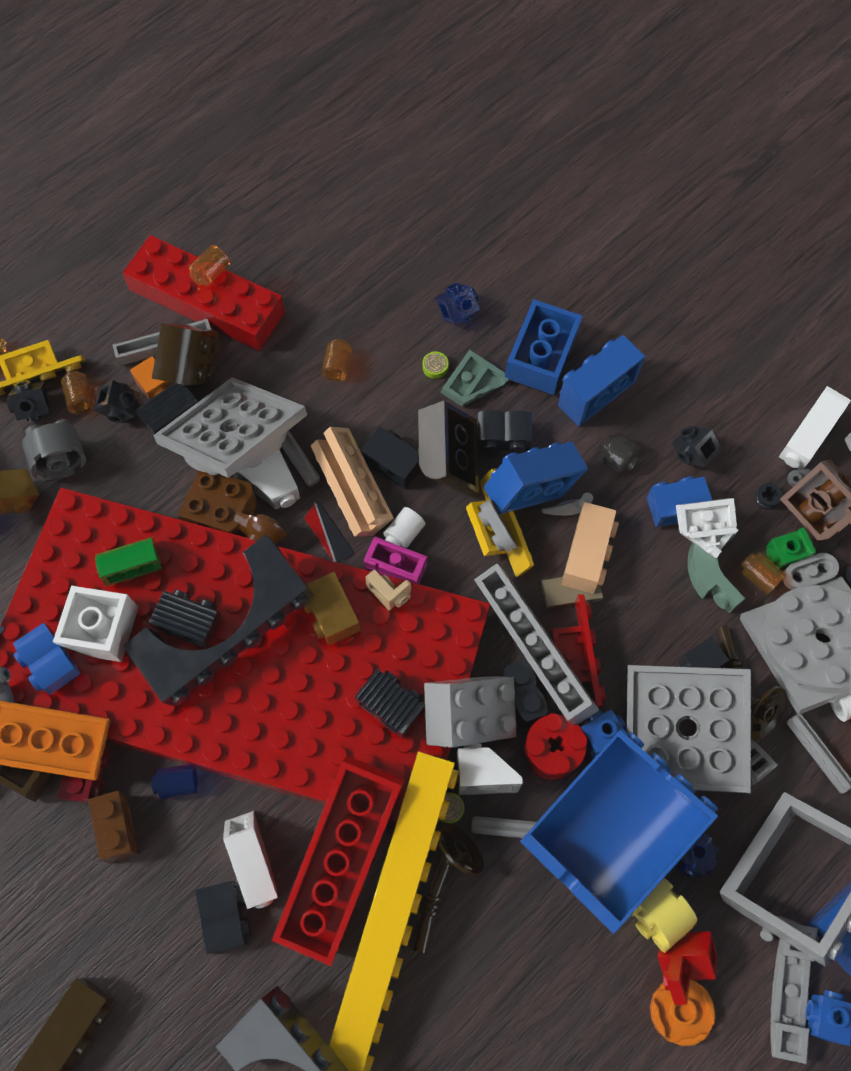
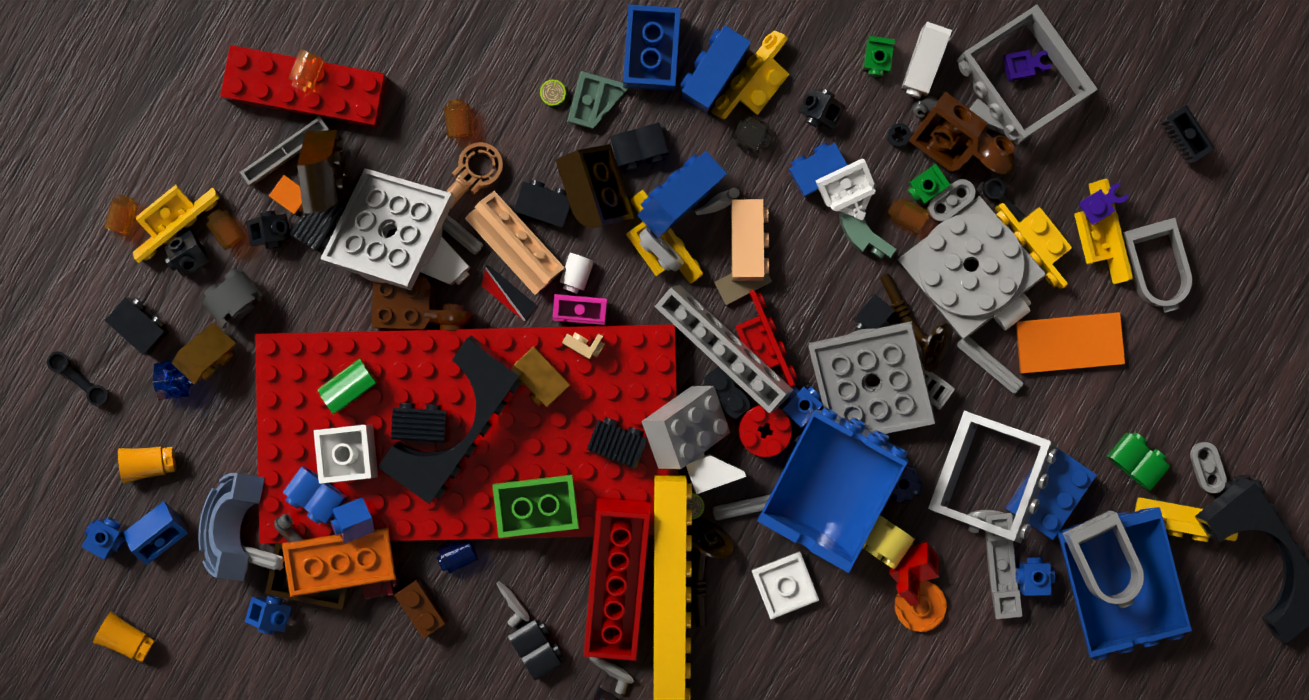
camera: 15 degrees left, 20 degrees up
(72, 696) = (352, 520): none -> blue brick
(218, 858) = (515, 604): none -> light grey bar
(250, 860) = (541, 598): white slope -> none
(277, 741) = (536, 506): none -> bright green brick
(304, 976) = (616, 672): none -> light grey bar
(327, 416) = (460, 185): none -> medium nougat pin
(457, 303) = (555, 23): clear blue brick -> none
(530, 933) = (785, 585): none -> white plate
(638, 408) = (756, 81): none -> yellow bracket
(764, 416) = (878, 44): none -> green brick

